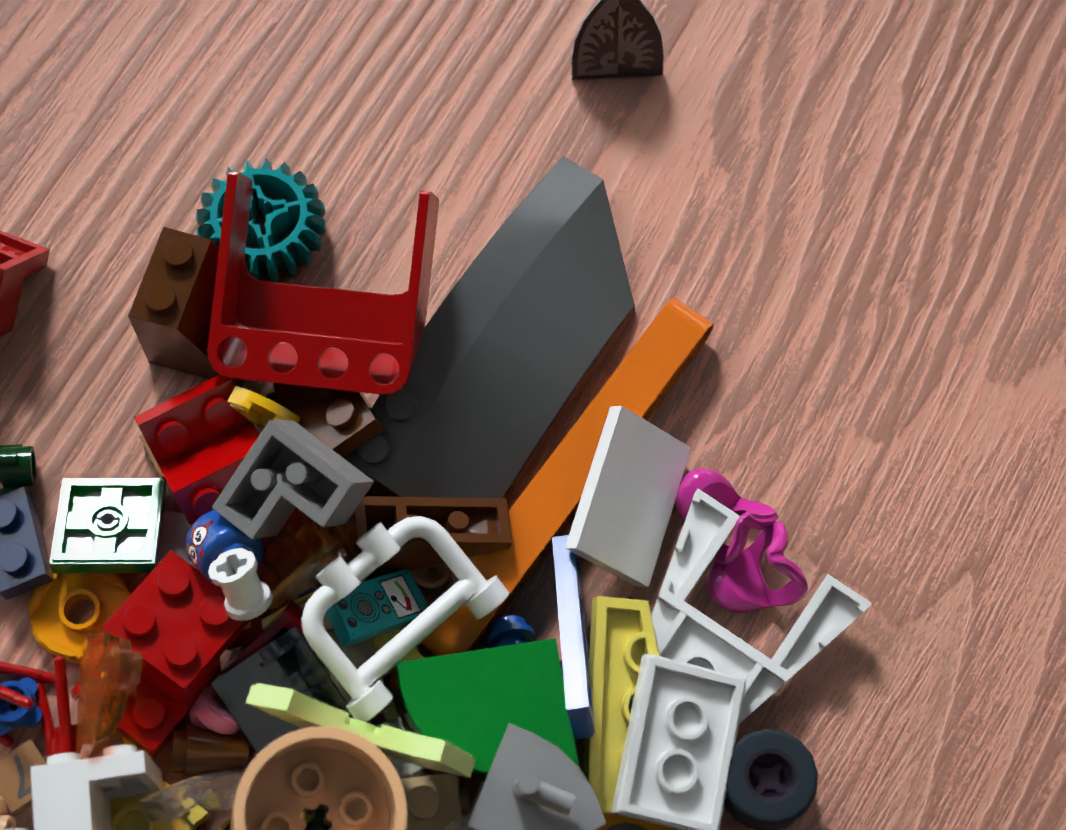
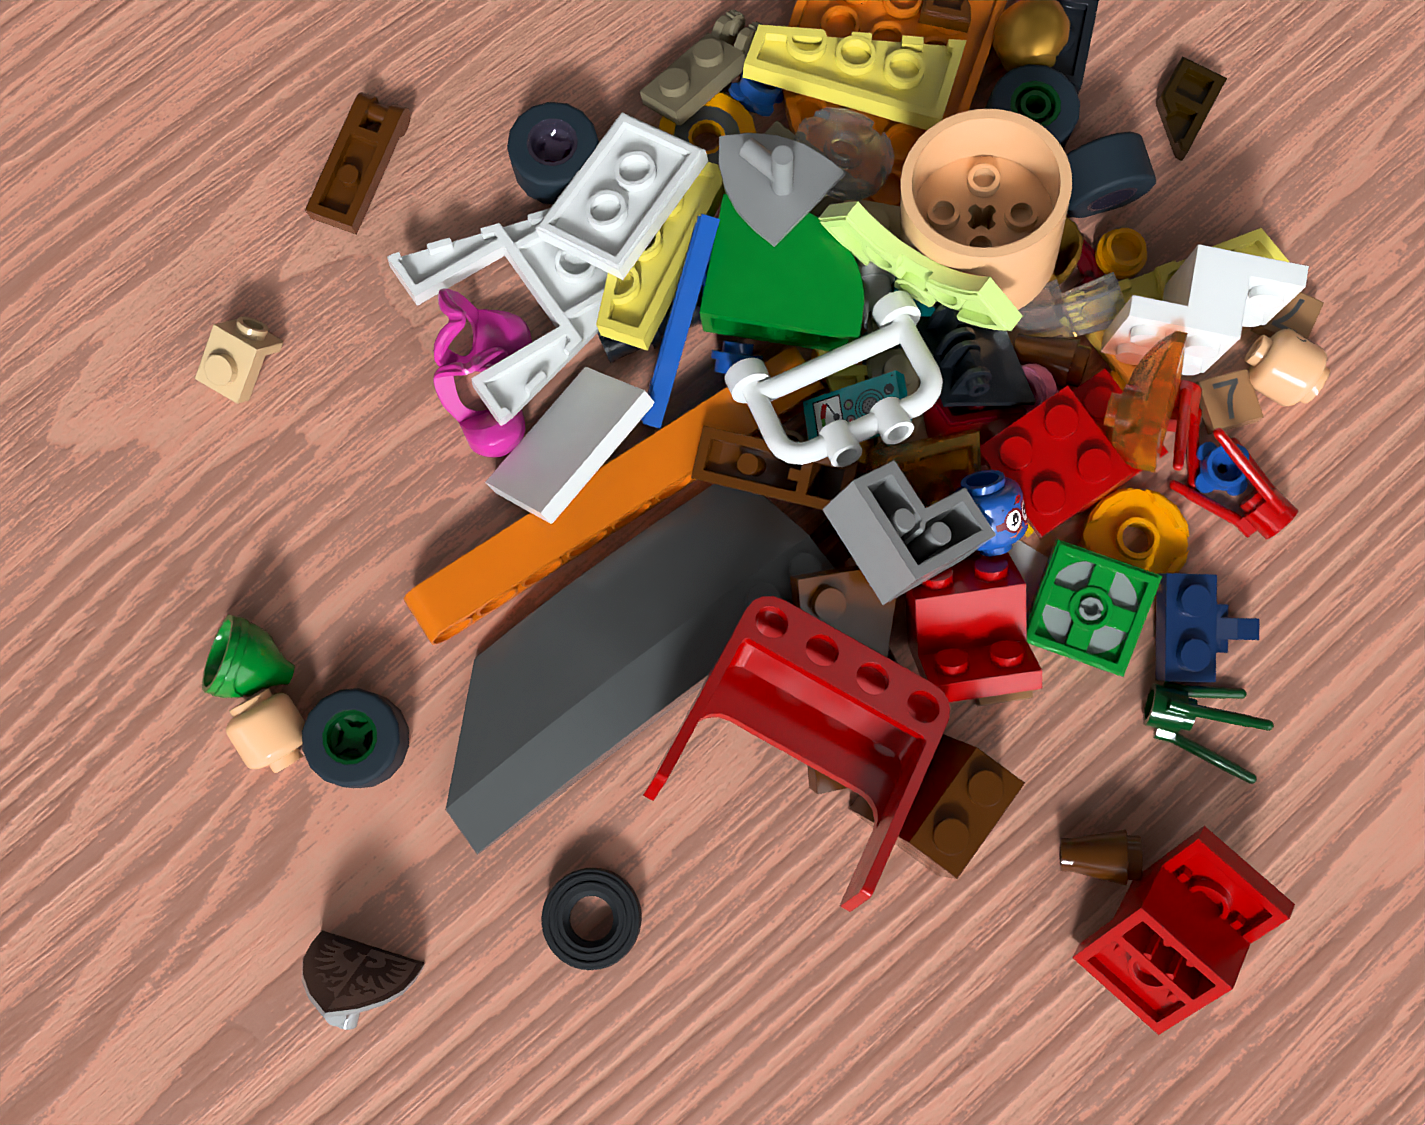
camera: 155 degrees left, 10 degrees up
(43, 329) = (1103, 856): none -> reddish brown cone
(238, 579) = (982, 437): white bush -> none
(258, 408) = (914, 658): yellow tile -> none
(296, 209) = (829, 947): teal gear -> none
(452, 121) = (557, 925): none -> black tyre
(695, 190) = (337, 734): none -> black wheel
(774, 188) = (267, 731): none -> light nougat head
(821, 229) = (243, 661): none -> green helmet
(952, 703) = (357, 163): none -> reddish brown plate
(964, 480) = (236, 356): none -> tan bracket

